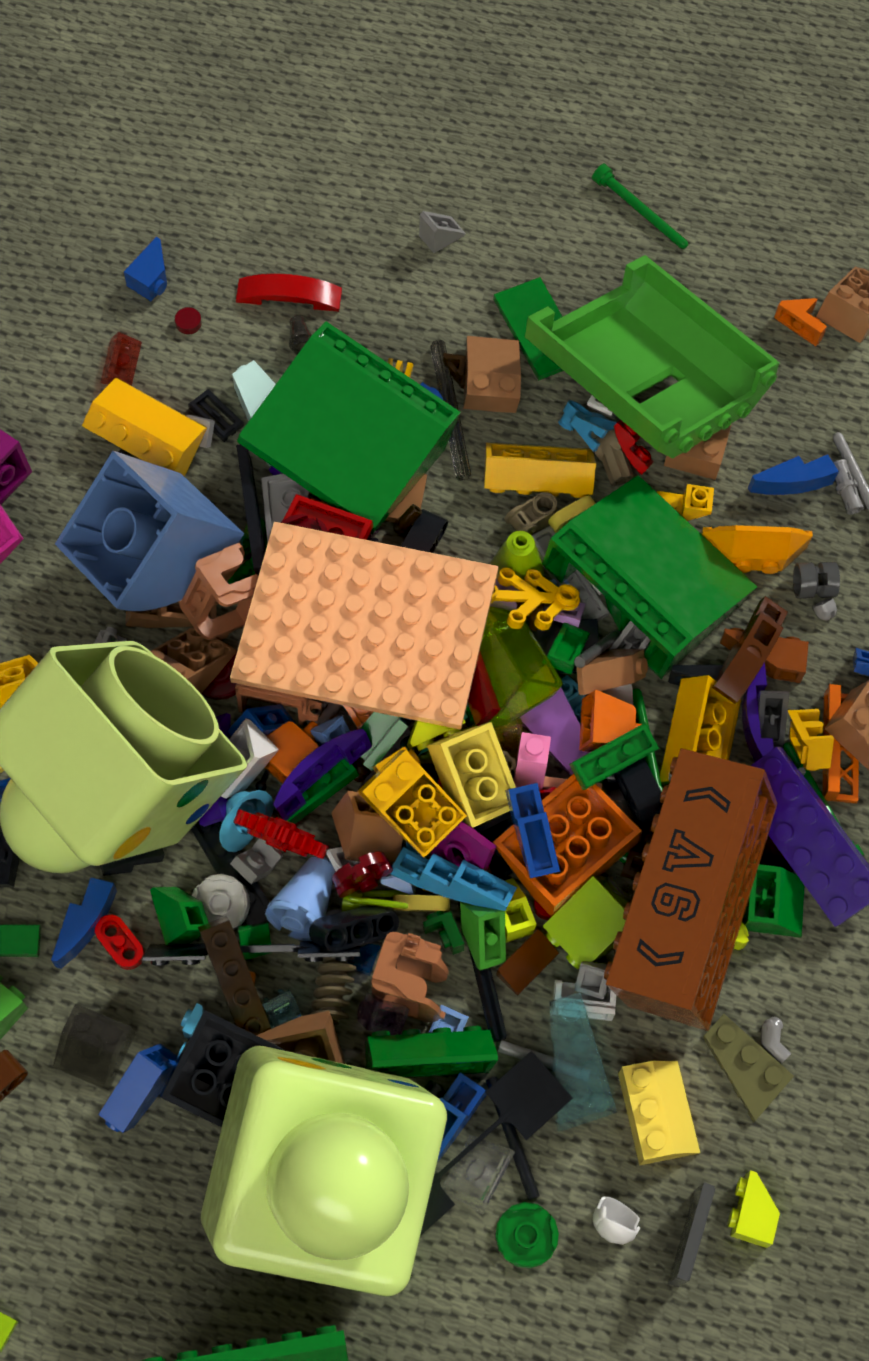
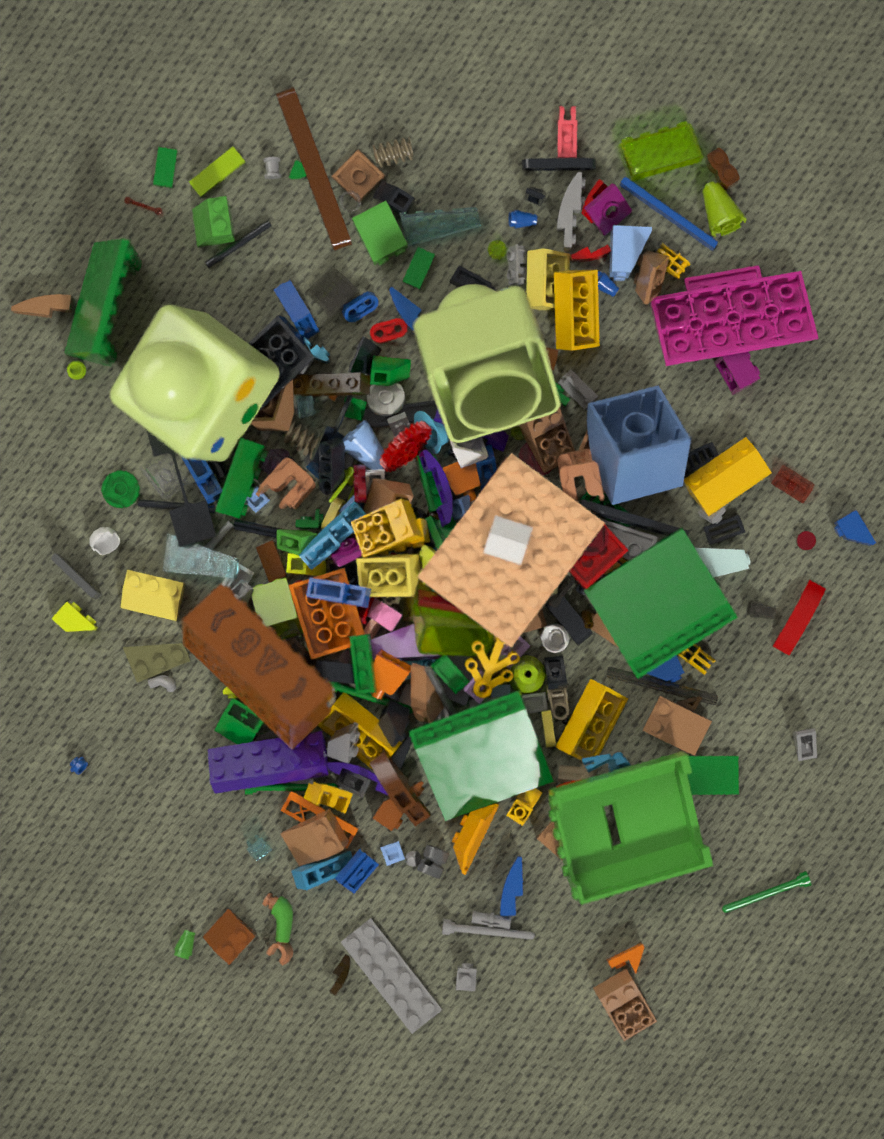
camera: 115 degrees right, 20 degrees up
(50, 1275) = (213, 222): none -> bright green slope
(72, 1226) = (239, 243): none -> black bar
(99, 996) = (360, 307): none -> blue plate
(354, 625) = (508, 540): none -> white slope
(453, 544) = (555, 638): none -> white hair
(496, 530) = (555, 672): none -> black slope
(666, 697) = (394, 721): none -> black slope
(727, 744) = (344, 743): none -> light grey slope
(831, 637) = (392, 853): none -> light blue tile

